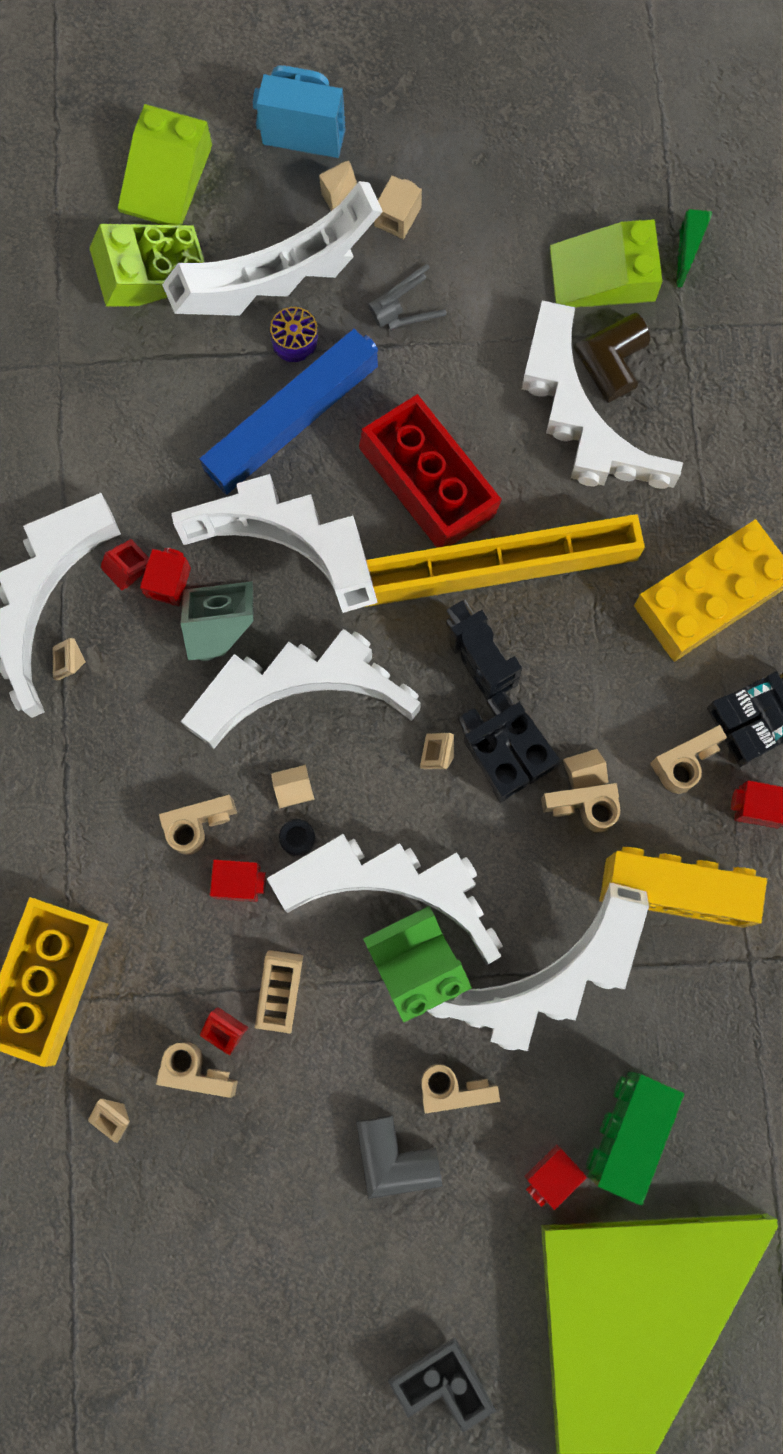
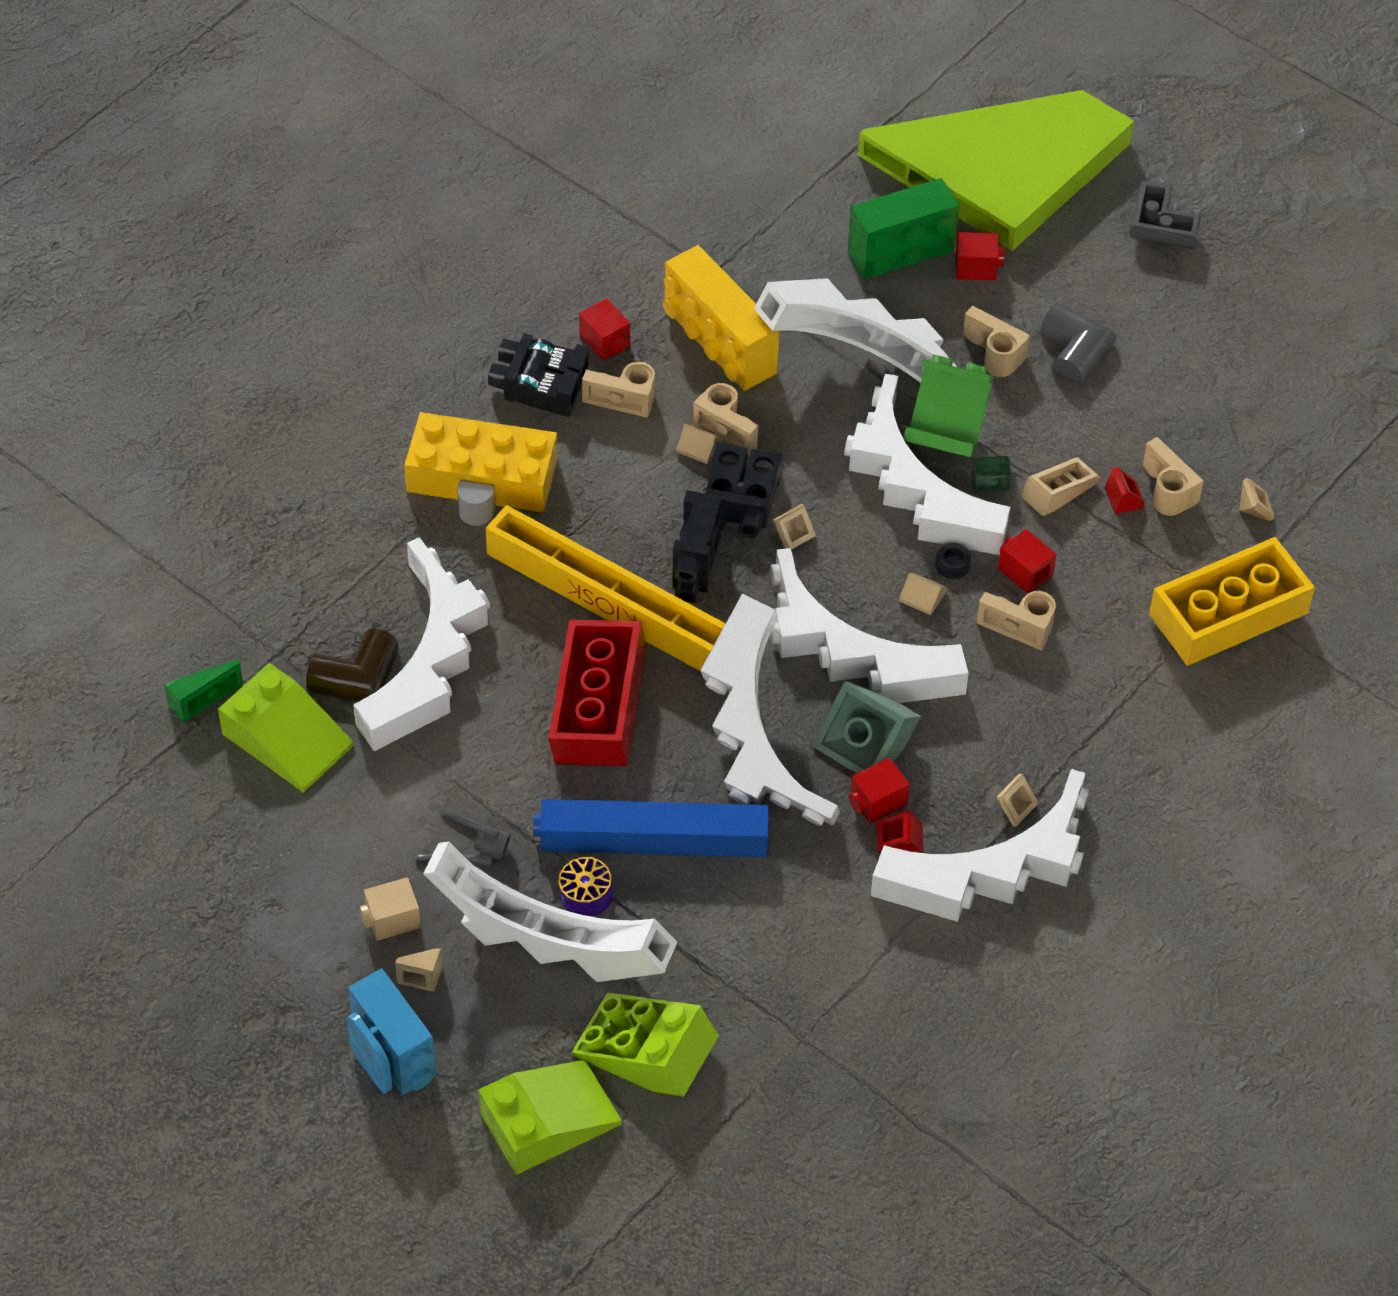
camera: 140 degrees left, 25 degrees down
(336, 942) = (991, 474): none -> clear green brick
(682, 551) = (476, 502): none -> light grey brick

